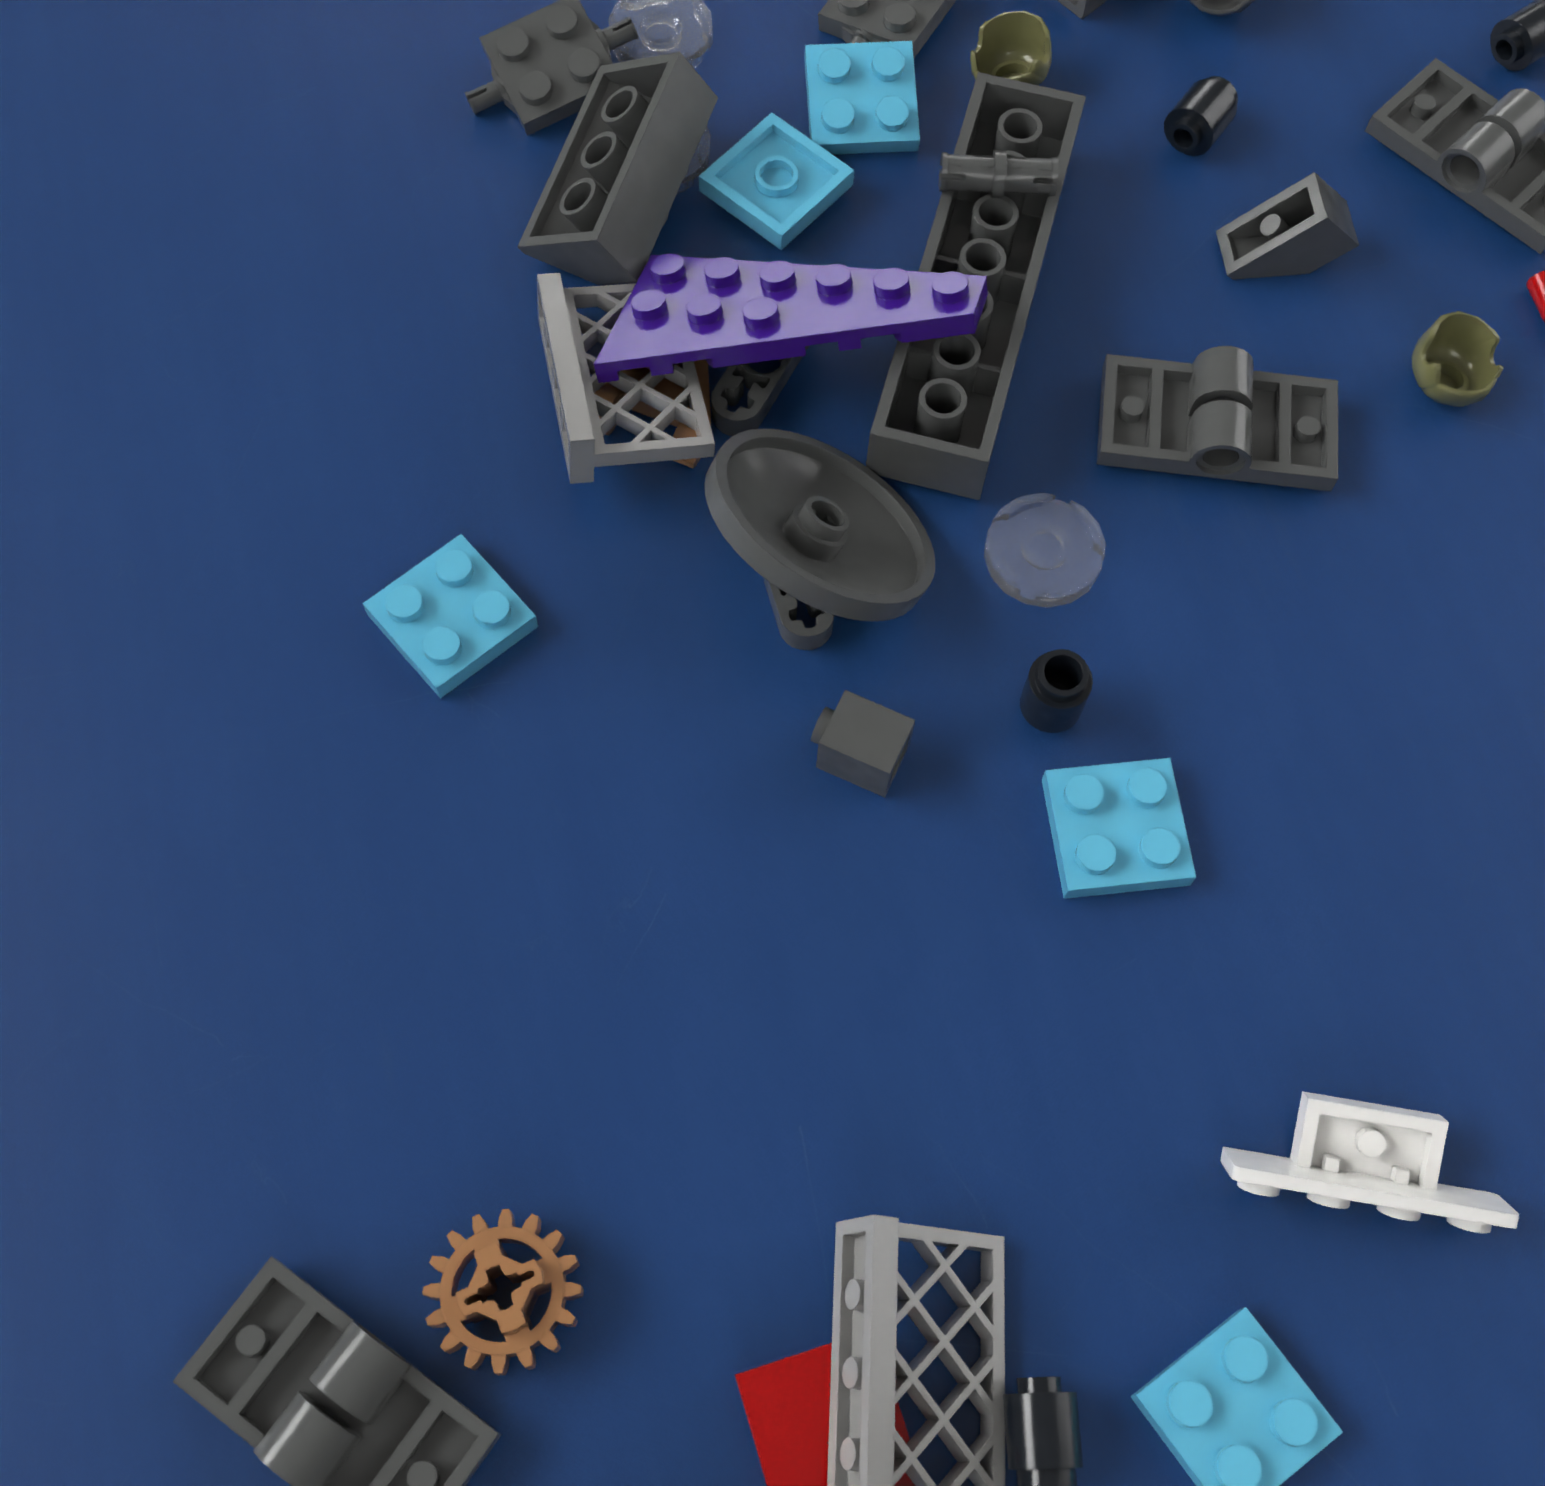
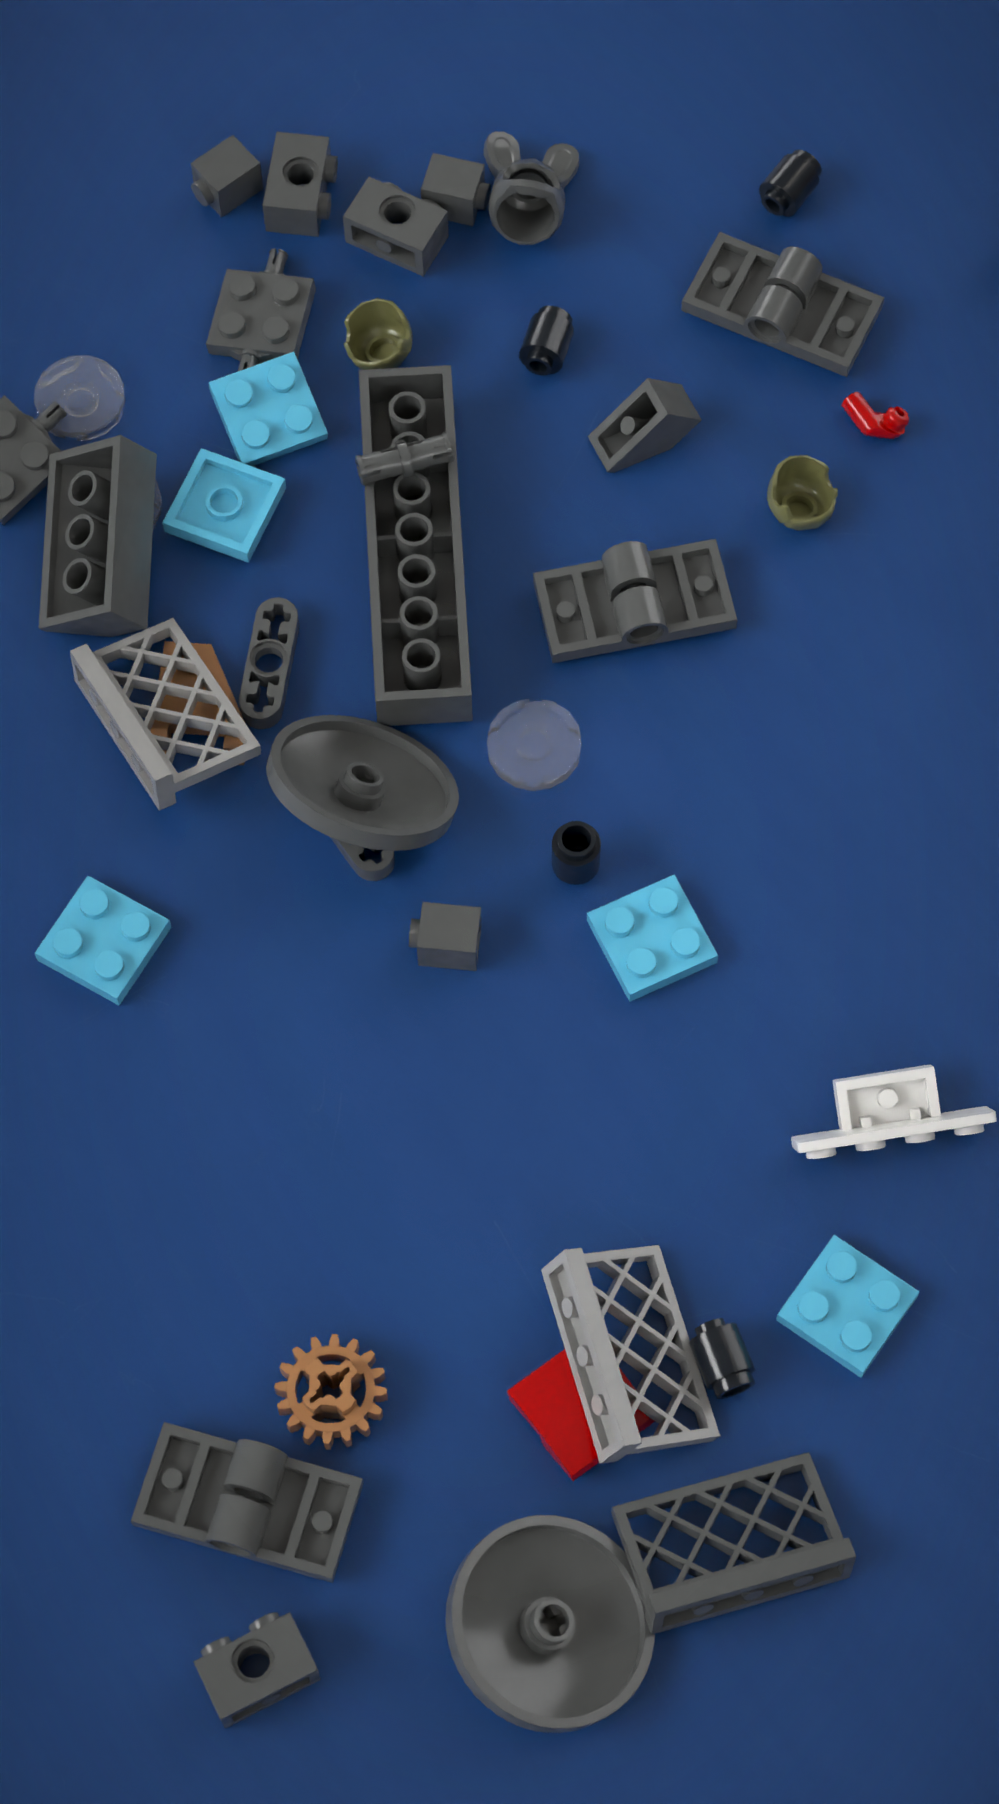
camera: 15 degrees left, 0 degrees up
(774, 309) = (267, 624): wing -> none

